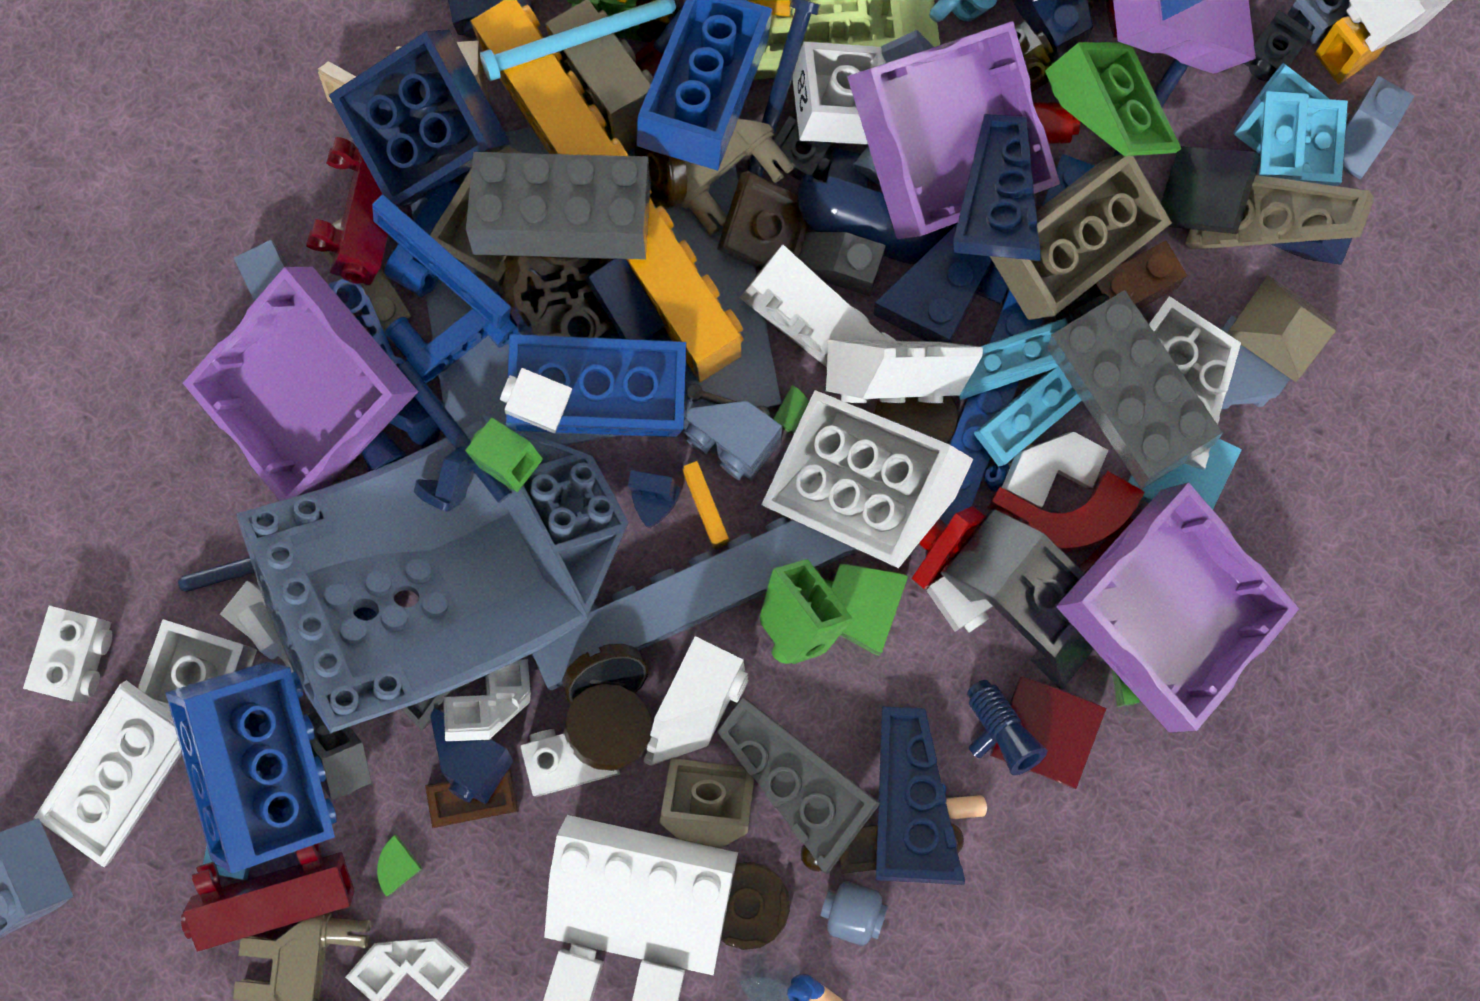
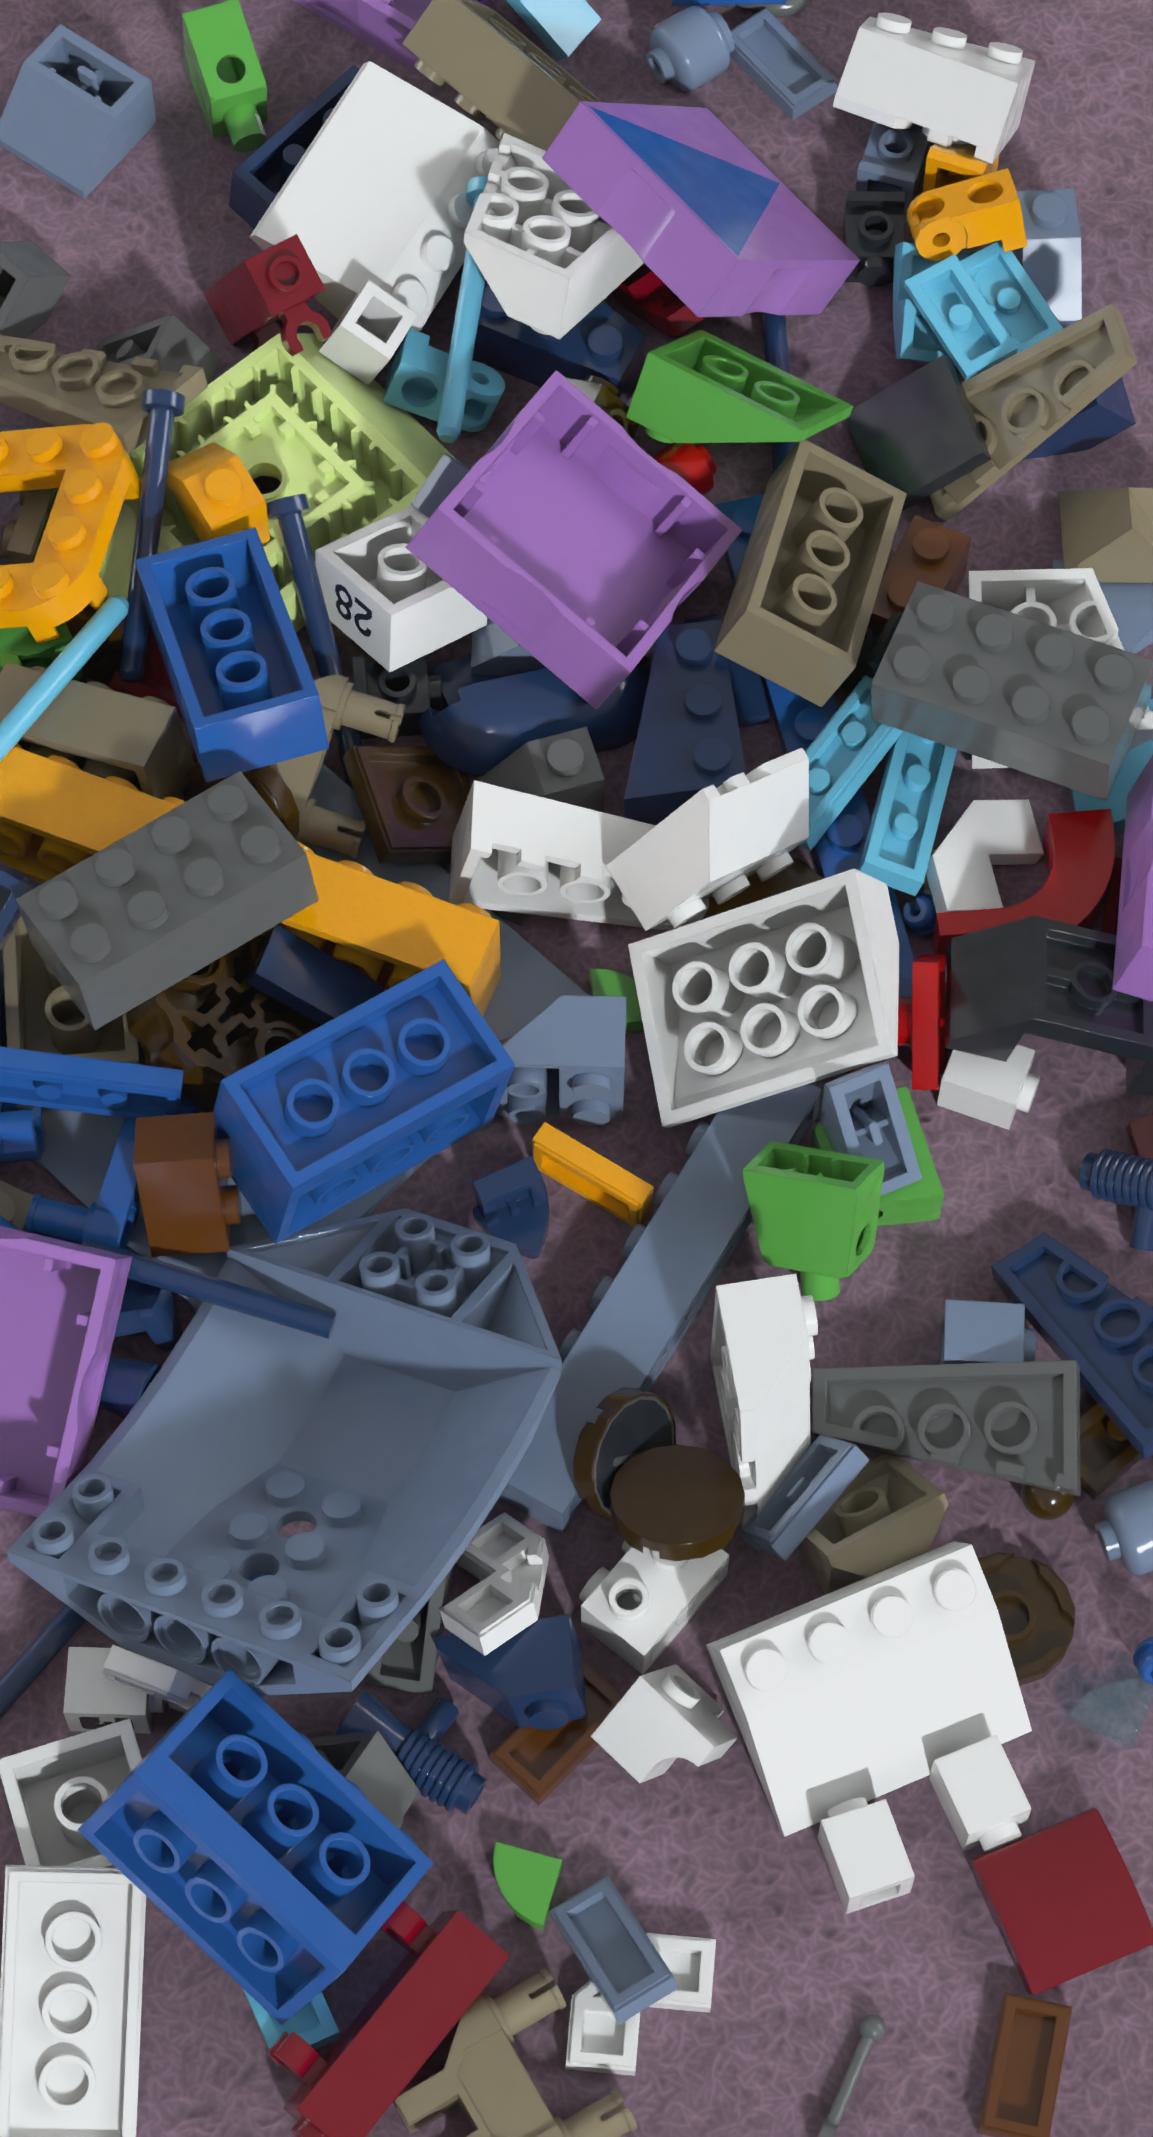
camera: 40 degrees left, 15 degrees down
(386, 759) = (430, 1765): none -> dark blue piece
(409, 937) = (613, 1950): none -> sand blue tile
(452, 482) = (260, 1357): dark blue tile -> none
(474, 367) = (184, 1184): none -> reddish brown brick
(504, 454) = (300, 1258): bright green brick -> none
(520, 839) = (663, 1720): none -> white brick
(535, 399) = (317, 1128): white brick -> none
(683, 767) = (804, 1496): none -> sand blue tile
(846, 748) = (985, 1333): none -> sand blue brick
(863, 593) = (867, 1120): none -> sand blue slope
(999, 199) = (689, 568): dark blue wing -> none
(1333, 75) = (967, 216): none -> light orange leg

